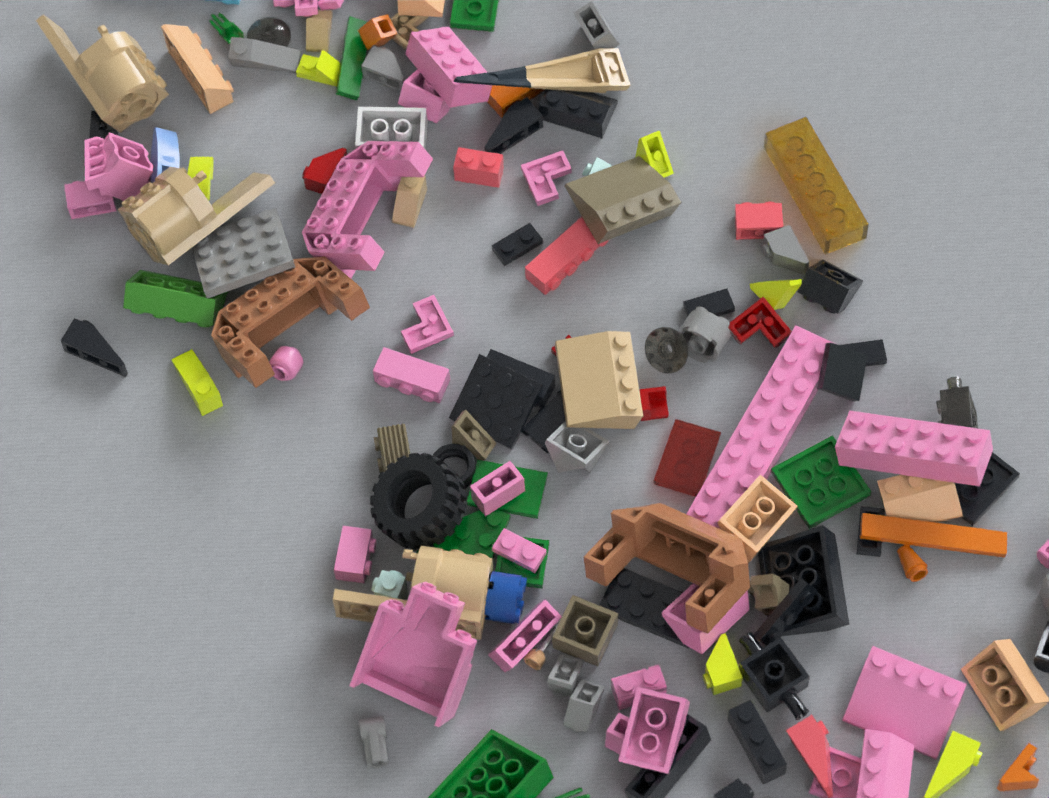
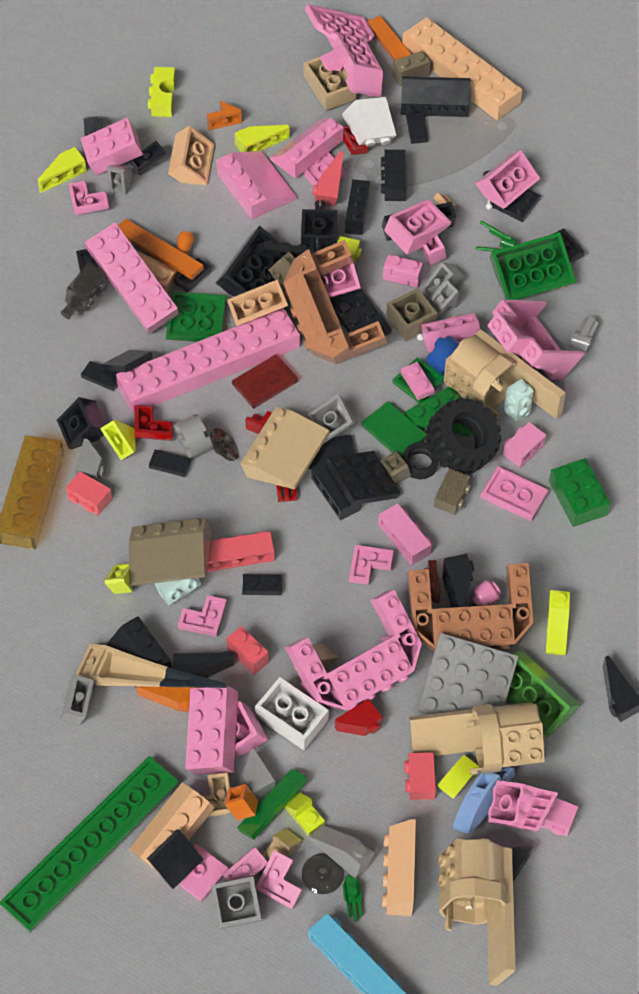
camera: 150 degrees left, 5 degrees down
(234, 157) = (421, 776): none -> coral brick
(259, 533) = (579, 492): none -> green brick
(321, 348) = (457, 578): none -> black slope
(330, 498) = (514, 493): none -> bright pink tile
(348, 338) = (434, 582): none -> clear red slope
(497, 488) = (405, 417): bright pink brick -> none

